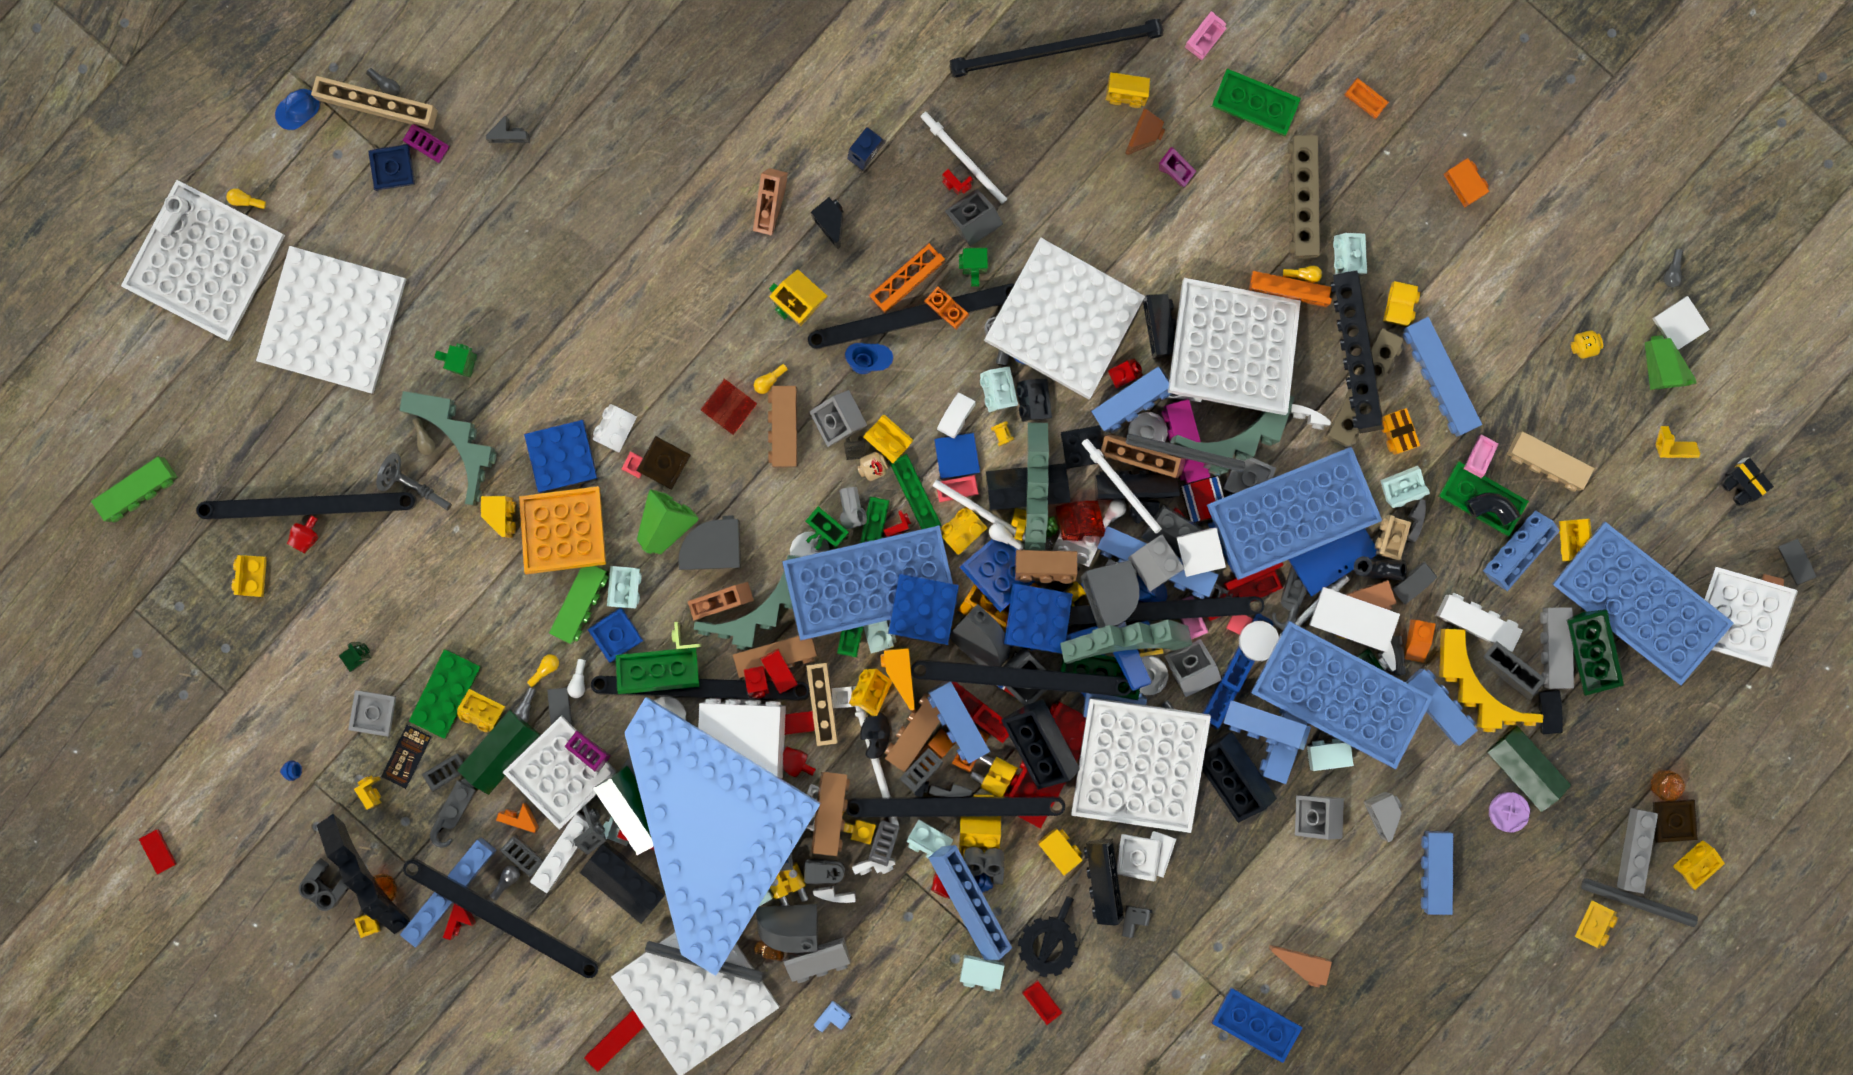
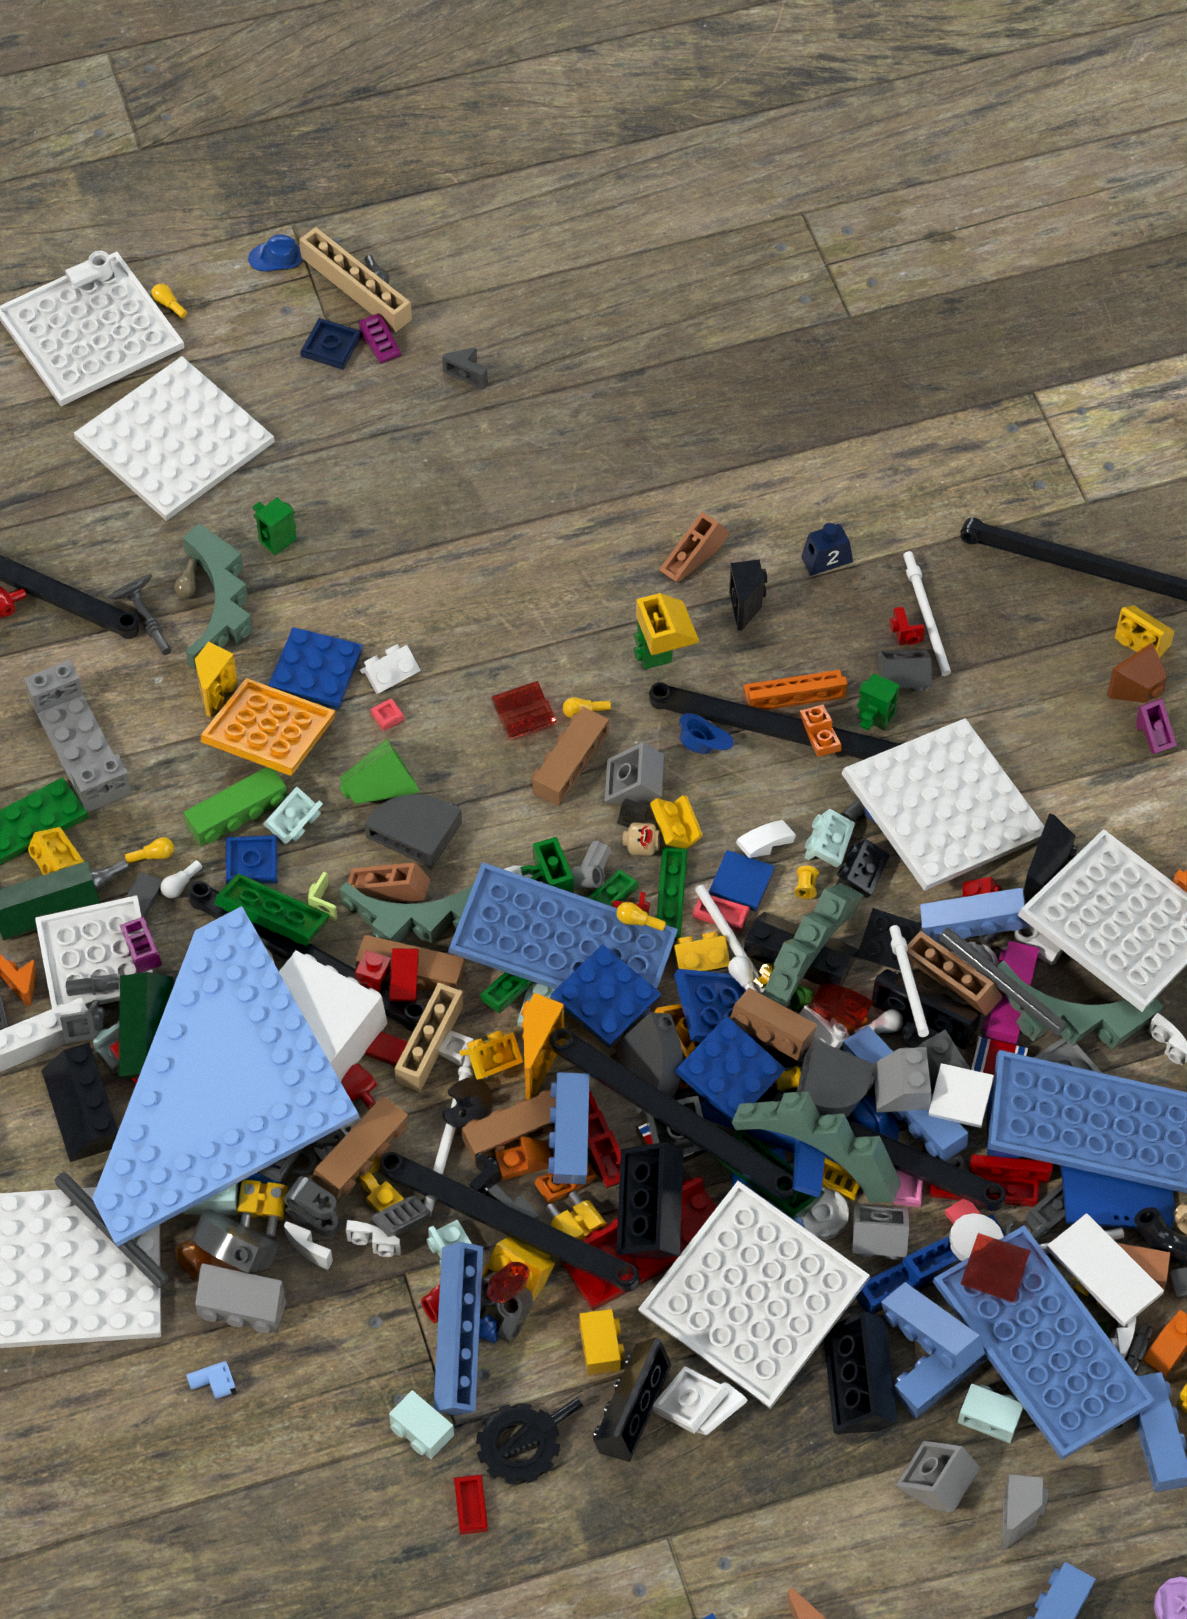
camera: 30 degrees right, 30 degrees down
(434, 613) = (76, 736): none -> light grey plate
(575, 799) = (91, 985): none -> dark grey axle
(663, 462) = (418, 724): dark brown tile -> none
(905, 538) = (631, 914): none -> yellow piece
(932, 769) = (495, 1150): dark grey slope -> none
(981, 859) = (503, 1279): none -> clear red beam
(1133, 916) = (642, 1466): dark grey piece -> none
(1289, 666) = (995, 1267): none -> clear red slope

